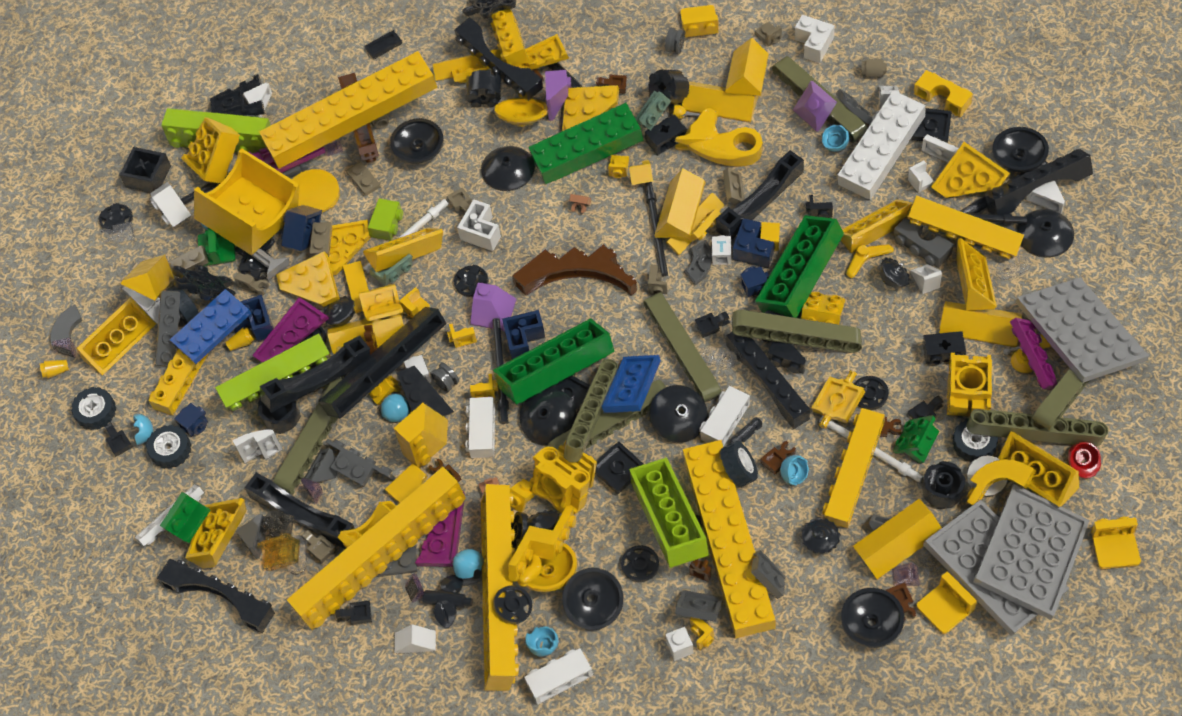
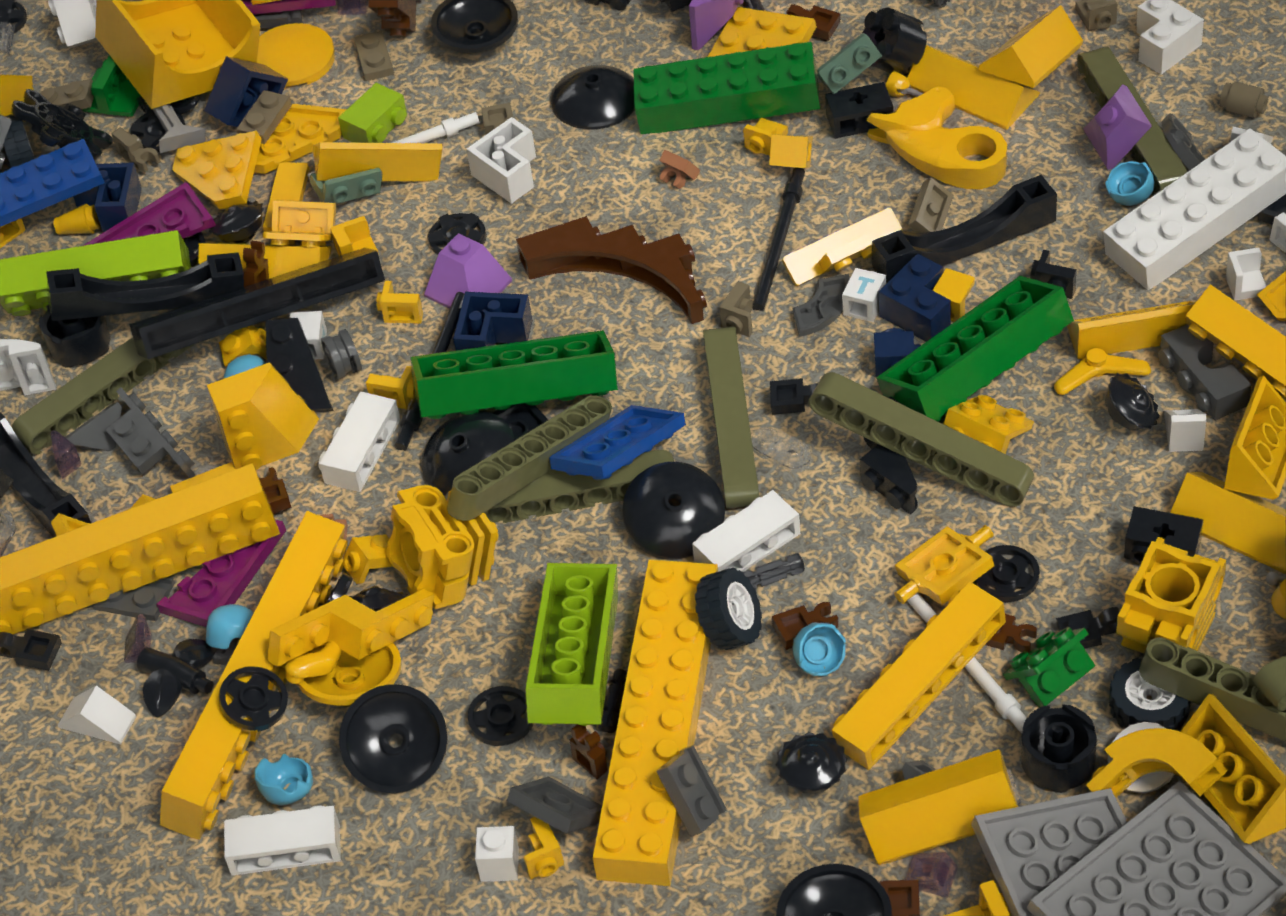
camera: 20 degrees right, 10 degrees down
(319, 547) = (27, 532): dark tan plate -> none
(520, 111) = (649, 22): yellow dish -> none
(615, 465) = (527, 558): black plate -> none
(680, 206) = (830, 212): yellow slope -> none
(783, 394) = (850, 510): black arch -> none

